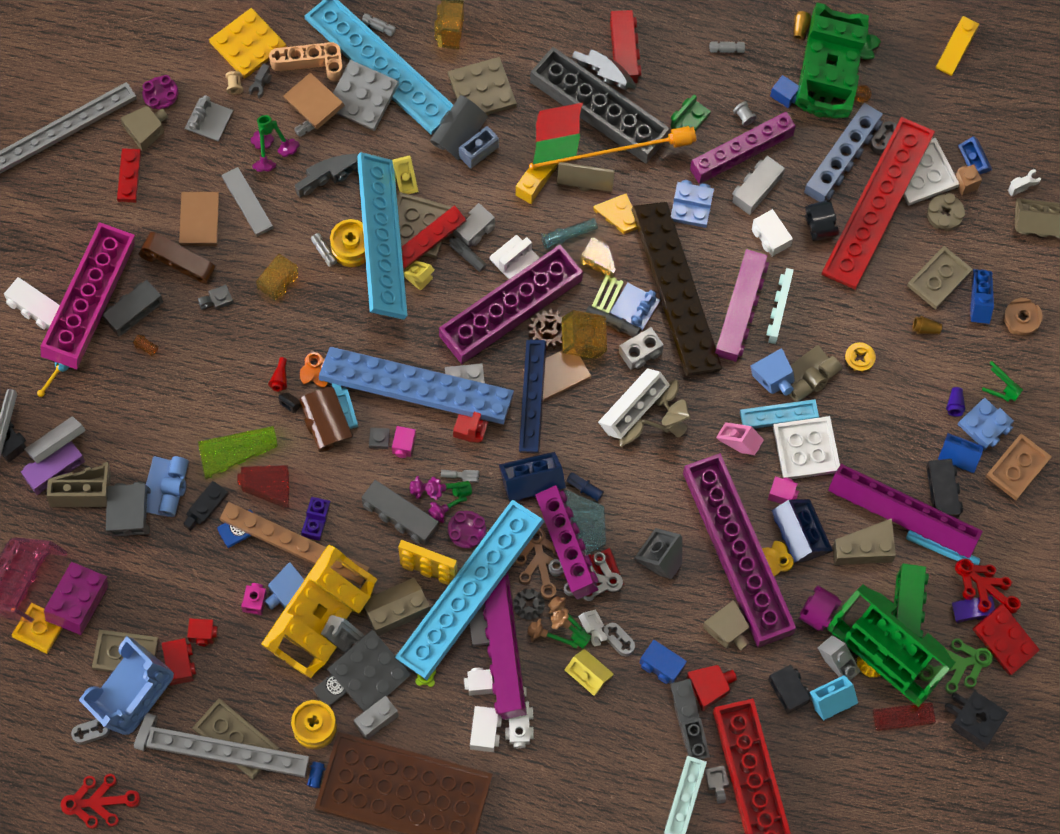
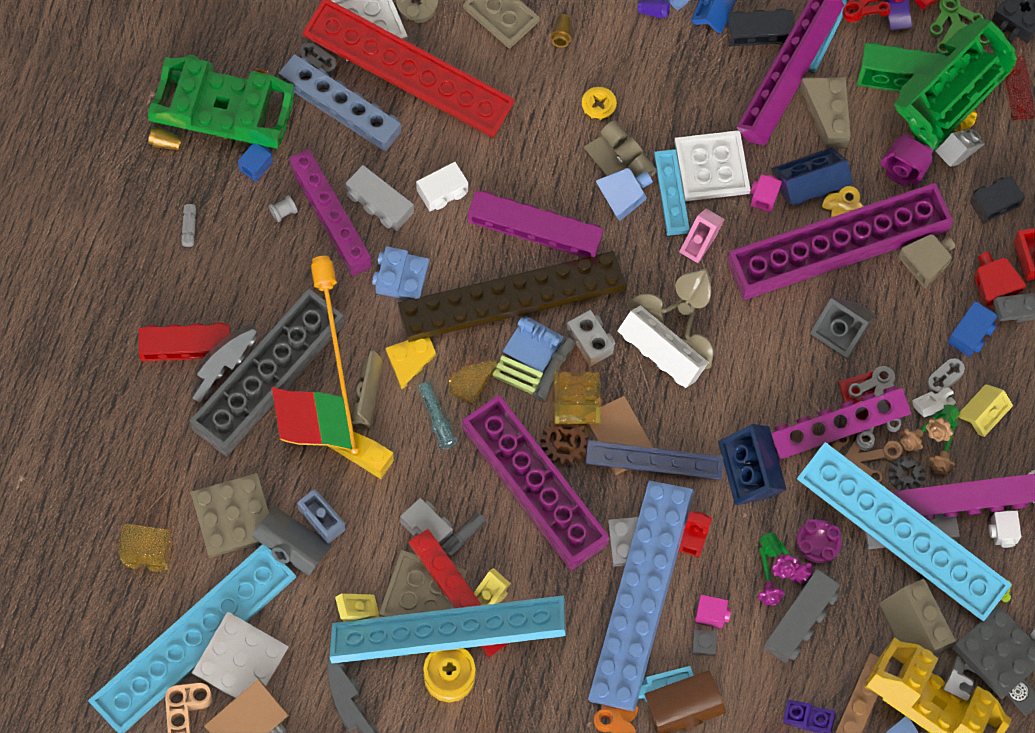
camera: 90 degrees left, 0 degrees up
(323, 249) = (453, 709): light grey axle -> none
(378, 24) = (134, 641): light grey axle -> none
(427, 562) = (875, 578): yellow plate -> none
(466, 475) = (749, 541): light grey piece -> none
(514, 256) = (469, 479): white bracket -> none
(584, 486) = (763, 406): dark blue axle -> none
(590, 520) = (804, 402): clear light blue wing -> none
(691, 114) = (284, 271): green bracket -> none
(777, 313) = (531, 181): light aqua plate -> none
(821, 220) = (431, 129): black brick -> none
(833, 697) = (1007, 152): medium azure brick -> none

